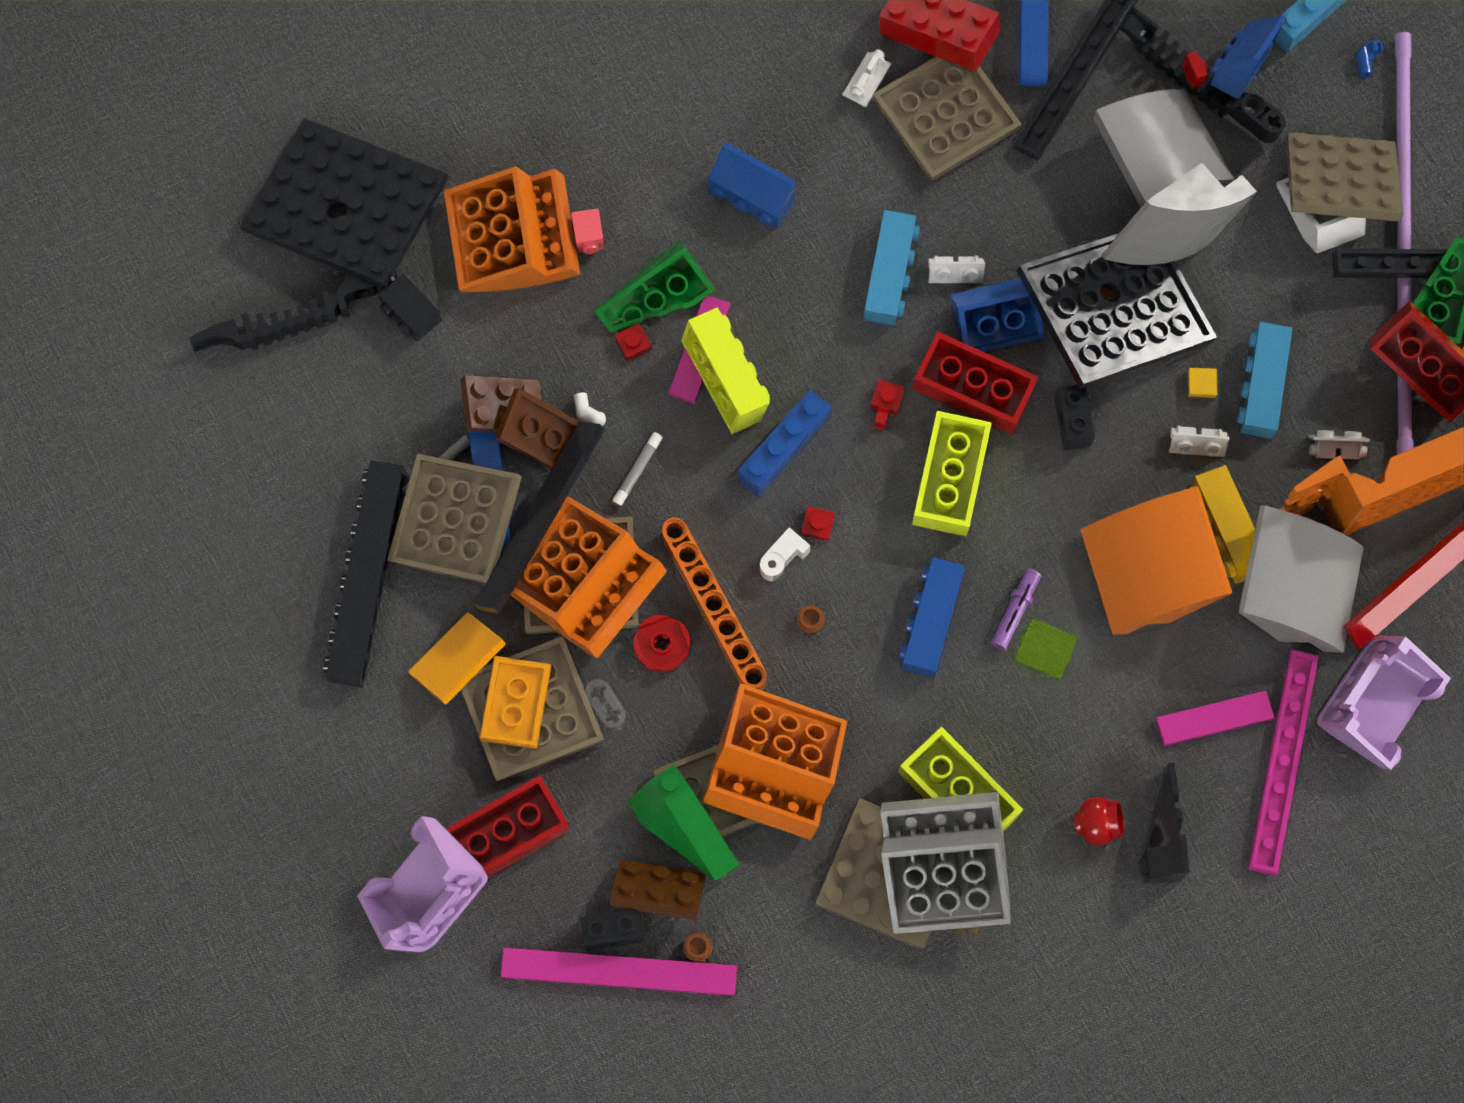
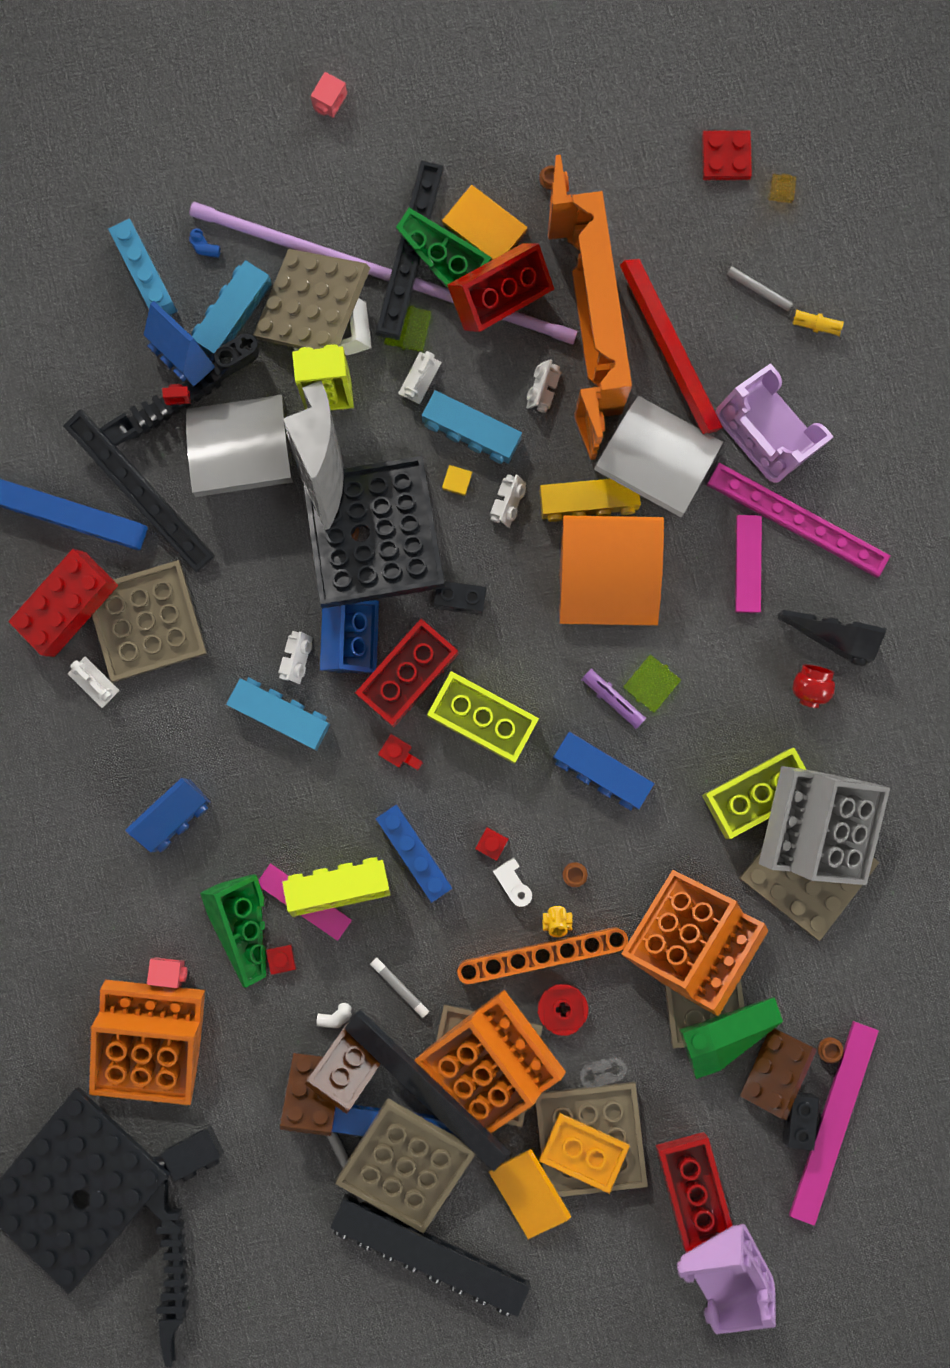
camera: 75 degrees left, 10 degrees up
(755, 611) = (557, 921): none -> yellow gear
(1269, 209) = (328, 366): none -> neon yellow brick
(1302, 314) = (420, 377): none -> white hinge
(1310, 103) = (232, 308): none -> dark azure brick
(1352, 292) = (413, 331): none -> clear neon green piece

